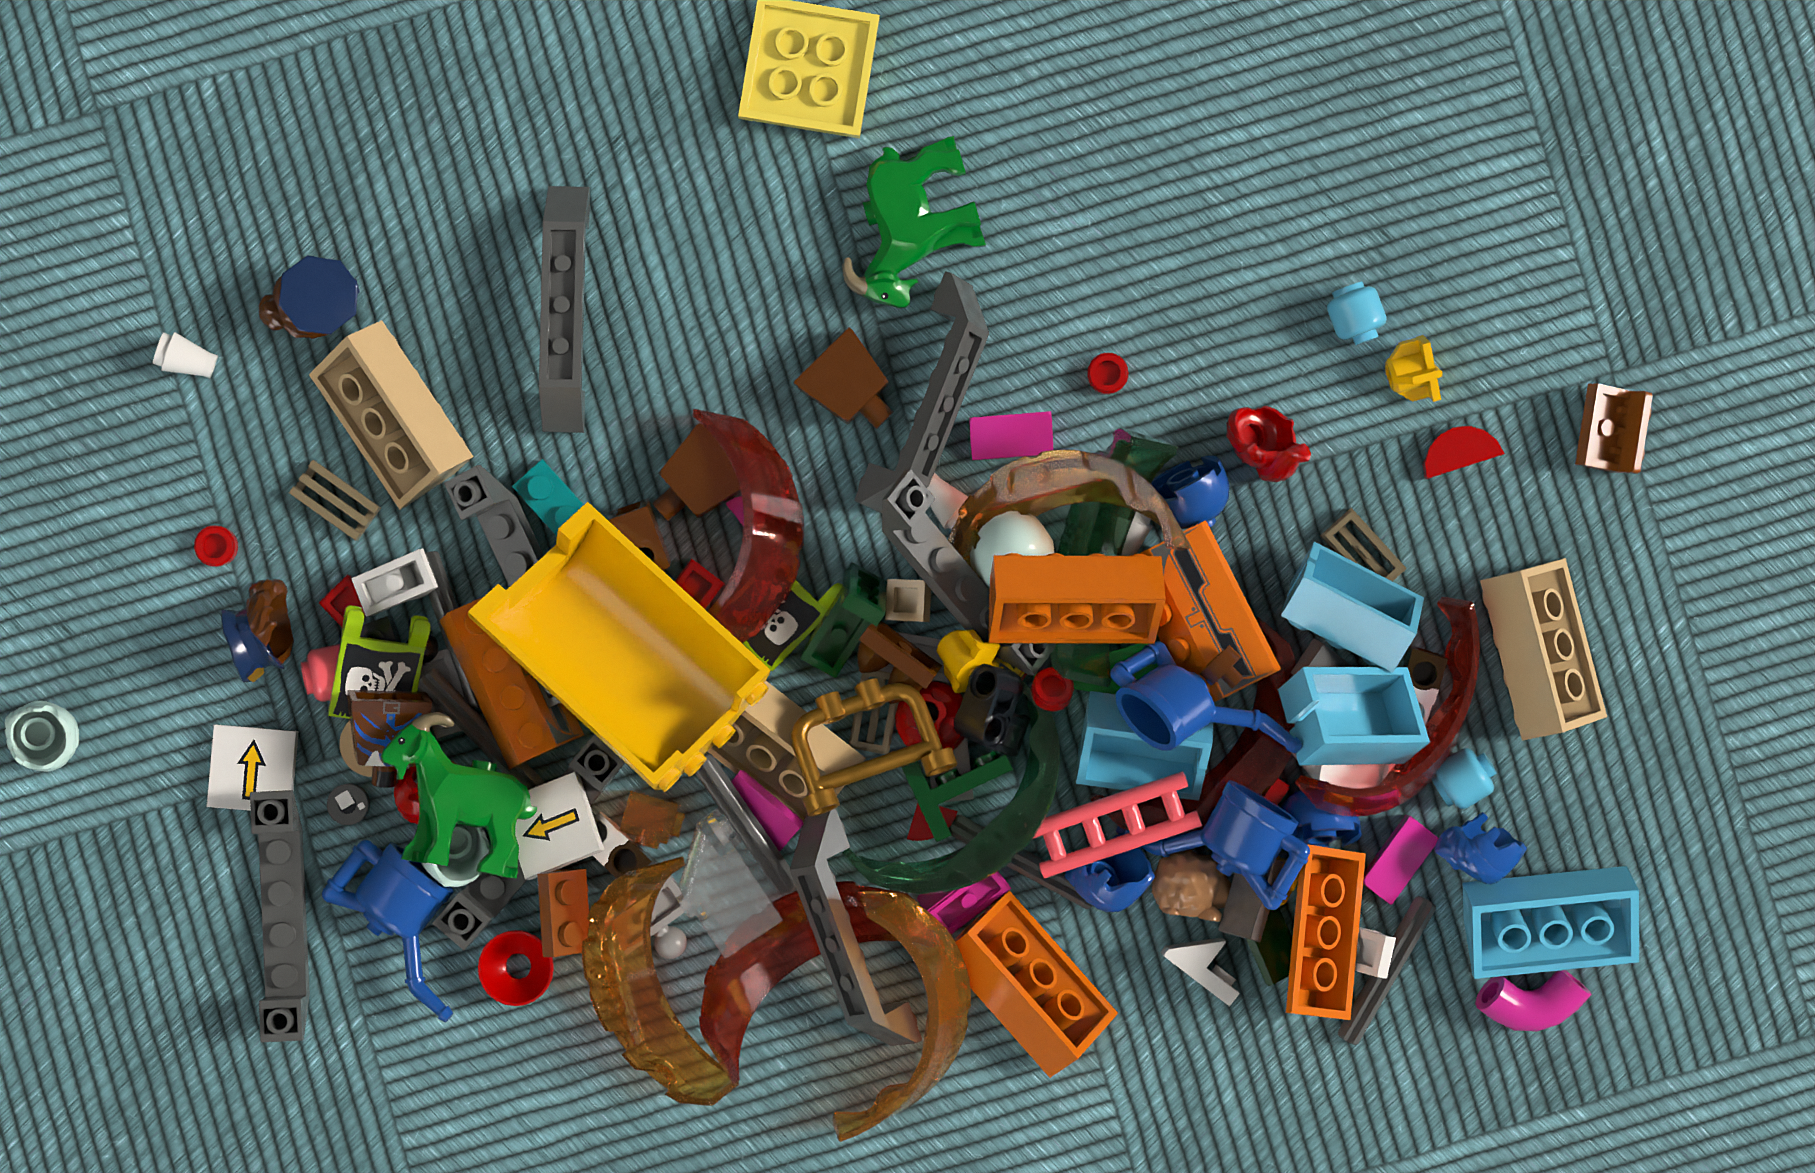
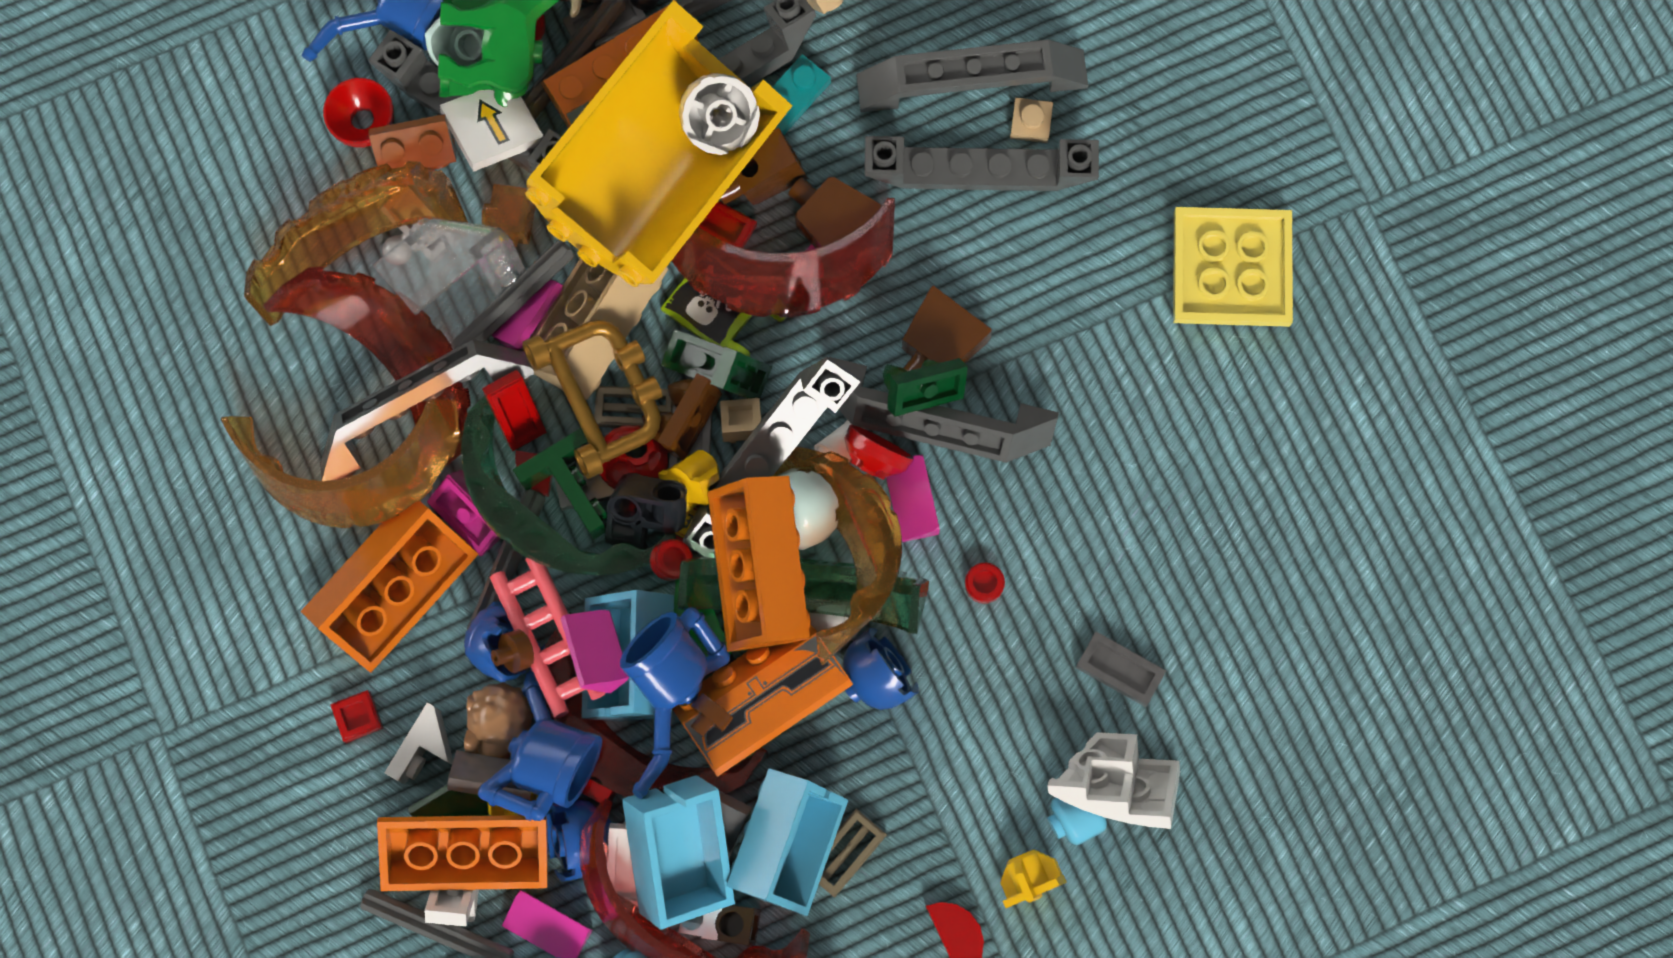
camera: 85 degrees right, 10 degrees down
(588, 580) = (734, 115): none -> white cylinder
(617, 252) = (1031, 120): none -> tan plate
(620, 851) = (476, 188): leg -> none
(664, 311) = (981, 168): none -> dark grey slope
(869, 834) = (514, 410): none -> red tile
(906, 221) = (1100, 373): green animal -> none
(906, 396) = (924, 387): none -> dark green tile
(964, 464) = (875, 453): none -> red piece
(1128, 860) = (514, 651): none -> reddish brown tile
(1139, 776) = (594, 650): none -> dark pink slope
(1161, 1031) = (356, 716): none -> red tile
(1214, 248) = (1120, 669): none -> flat silver tile
(1266, 441) = (939, 739): red hair -> none
(1333, 266) = (1117, 784): none -> white slope

